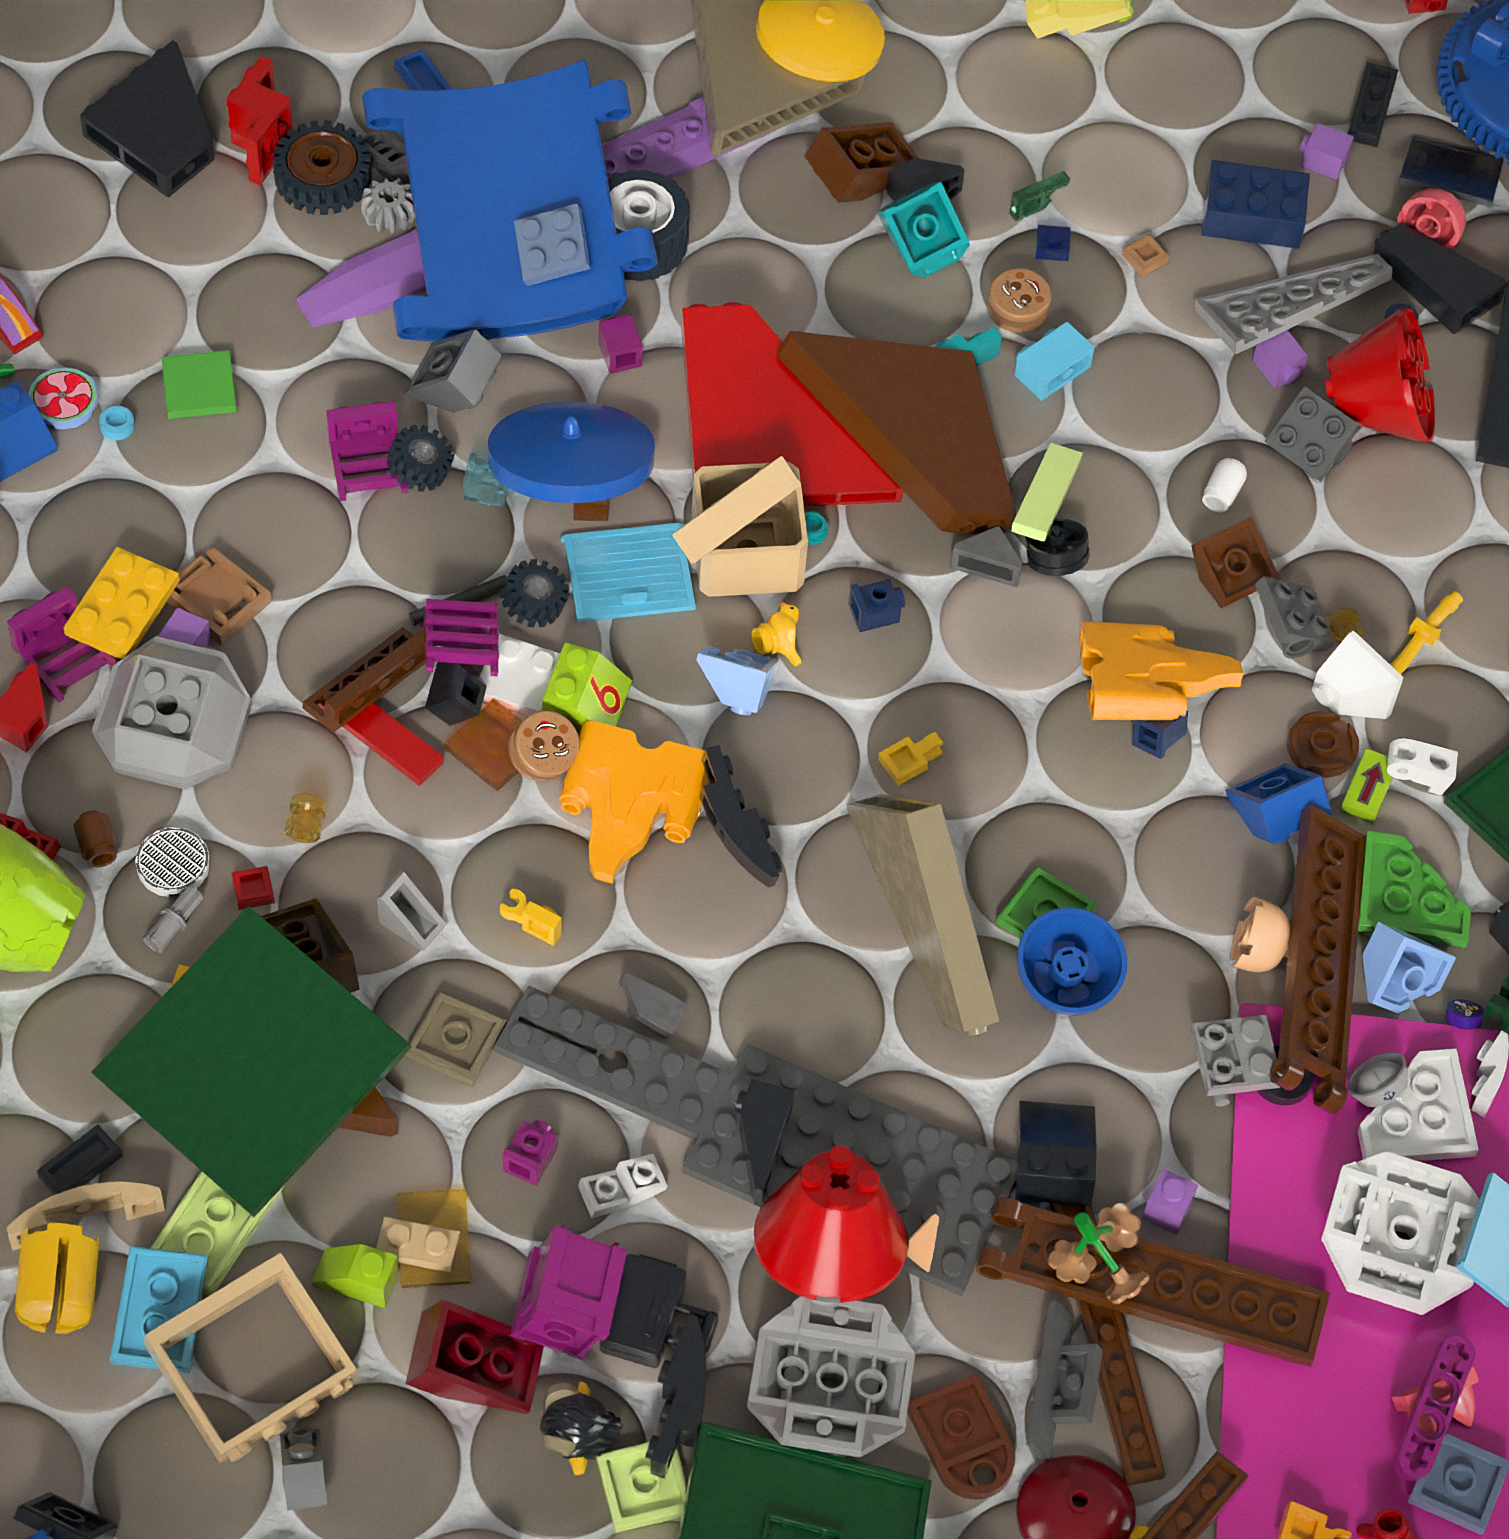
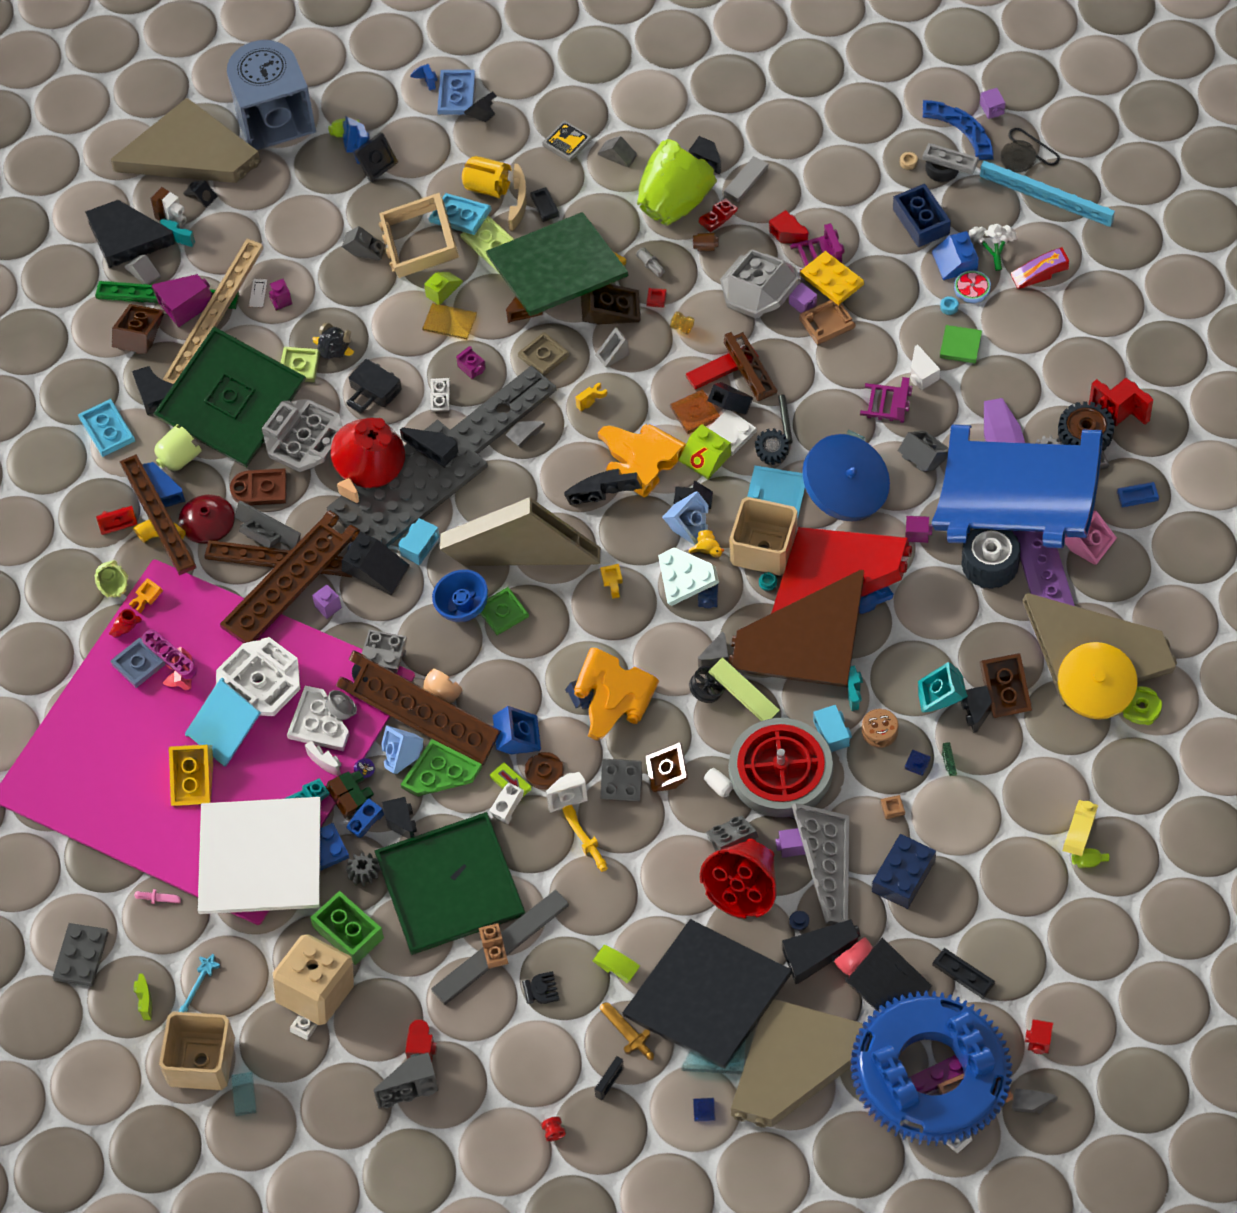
camera: 120 degrees right, 0 degrees up
(153, 123) = (1144, 360): black slope -> none
(172, 861) = (683, 270): tile -> none
(279, 420) = (923, 369): none -> white slope
(419, 1244) = (446, 311): tan plate -> none
(420, 458) = (873, 419): black wheel -> none
(462, 626) = (761, 402): magenta plate -> none
(473, 1359) = (381, 316): dark red slope -> none
(543, 746) = (679, 422): medium nougat head -> none
(552, 244) = (978, 498): sand blue plate -> none
(568, 1292) = (389, 348): magenta container -> none
(684, 1394) = (328, 383): black slope -> none
(685, 692) = (683, 492): none -> black slope
(736, 509) = (759, 512): tan slope -> none
(862, 638) = (685, 575): none -> light aqua plate
(970, 1094) = (419, 541): none -> medium azure brick
(1118, 1231) = (310, 543): medium nougat plant -> none
(1160, 404) = (780, 766): none -> red wheel
(1326, 151) = (931, 927): medium lavender brick -> none
(1345, 617) = (609, 803): clear yellow plate -> none

